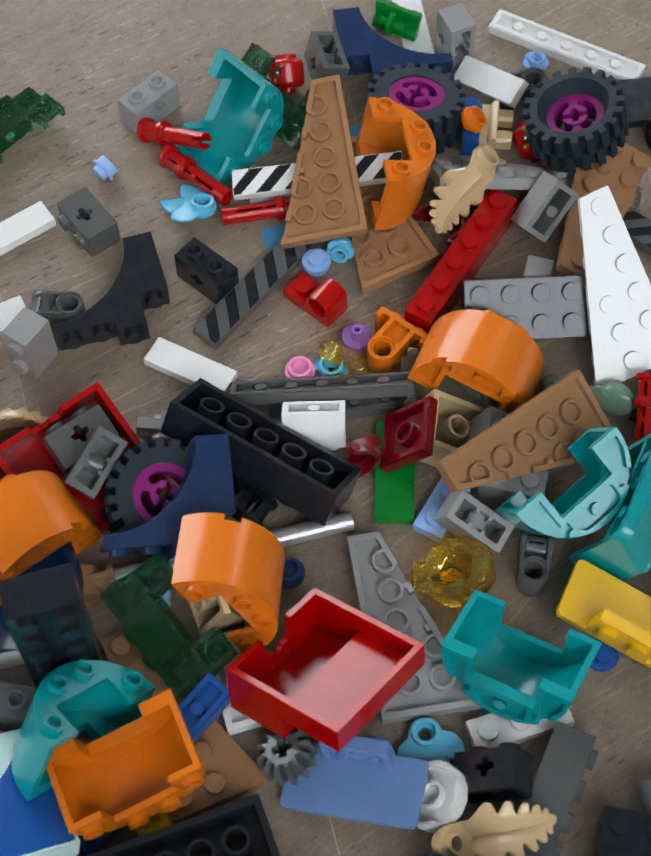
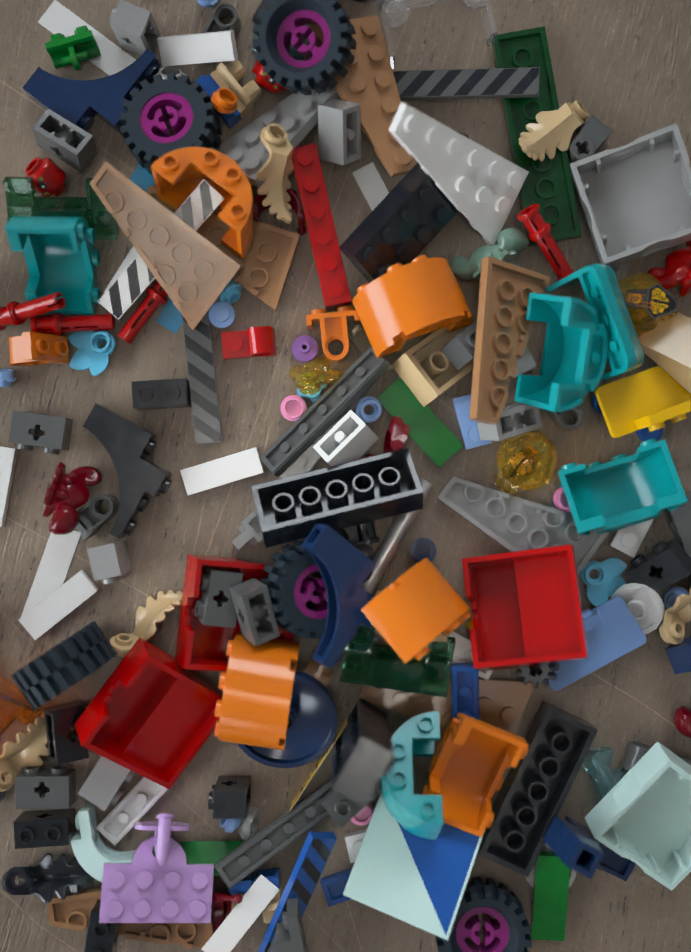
camera: 50 degrees left, 30 degrees up
(53, 270) = (66, 495): none -> dark red animal
(152, 167) = (38, 349): none -> orange pin
(367, 416) = (375, 412): none -> light blue plate
(409, 434) = (414, 396): dark red tile -> none

